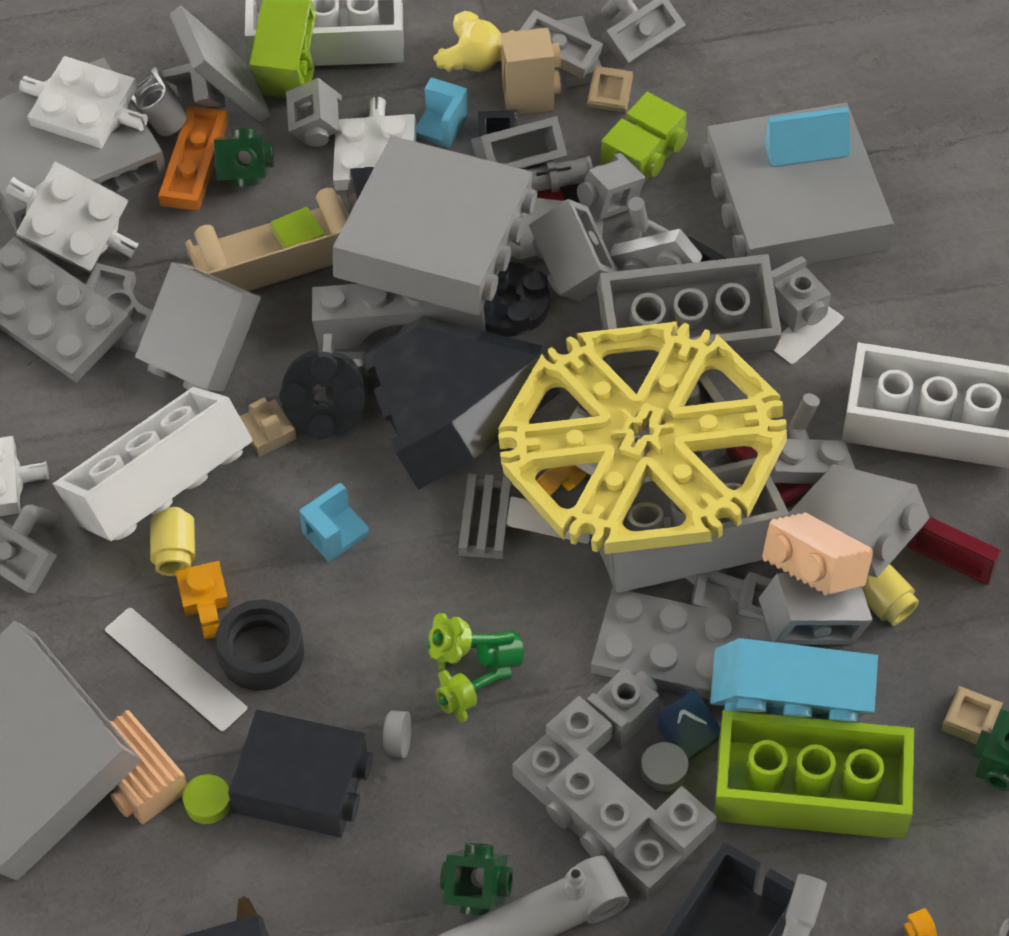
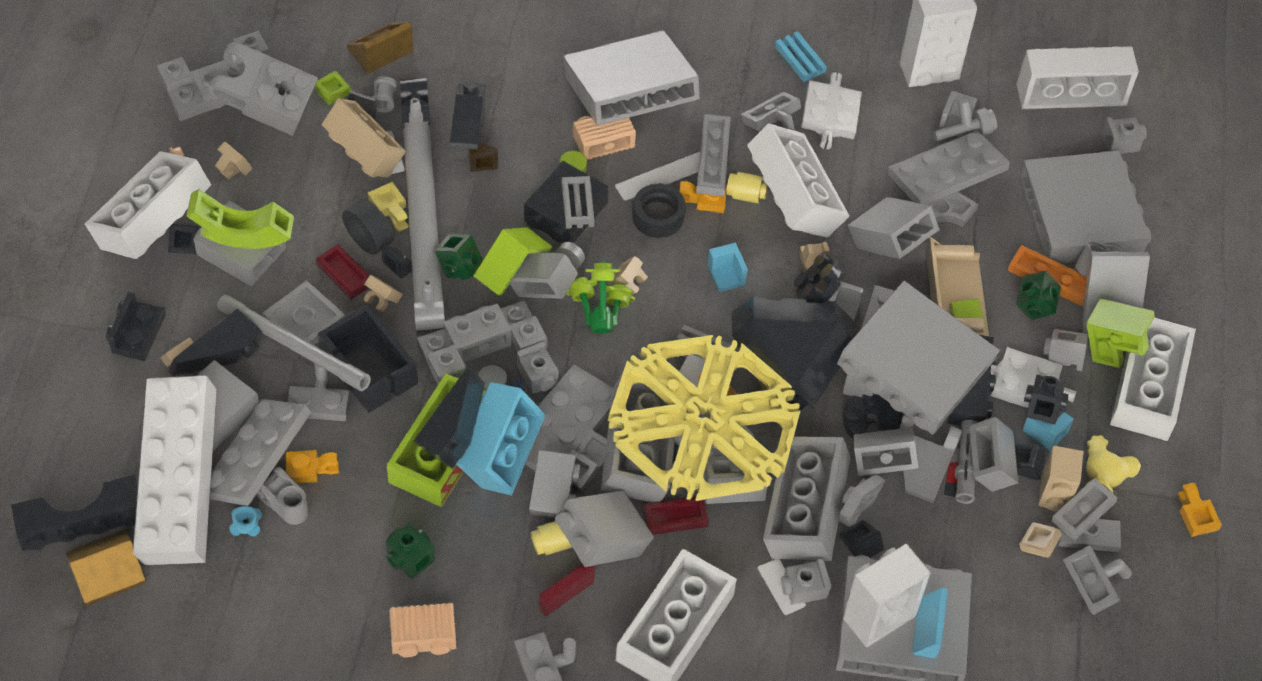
camera: 105 degrees right, 0 degrees up
(72, 217) = (1011, 190): white plate -> none
(83, 102) = (1105, 212): white plate -> none
(125, 600) = (713, 155): none -> light grey tile
(314, 742) = (579, 220): none -> light grey tile
(401, 647) = (629, 270): none -> tan tile
(422, 100) = (1046, 399): none -> black brick
(451, 792) = (507, 256): none -> lime panel
(464, 744) = (544, 276): none -> light grey piece
(610, 187) = (940, 499): light grey brick -> none
(639, 219) = (894, 496): light grey plant -> none
(652, 139) = (983, 549): lime piece -> none
(806, 459) = (670, 532): light grey plate -> none
(817, 553) = (578, 477): light nougat brick -> none
(825, 156) = (886, 594): none -> white brick
(841, 722) = (453, 422): none -> black slope
(970, 715) = (450, 553): tan tile -> none

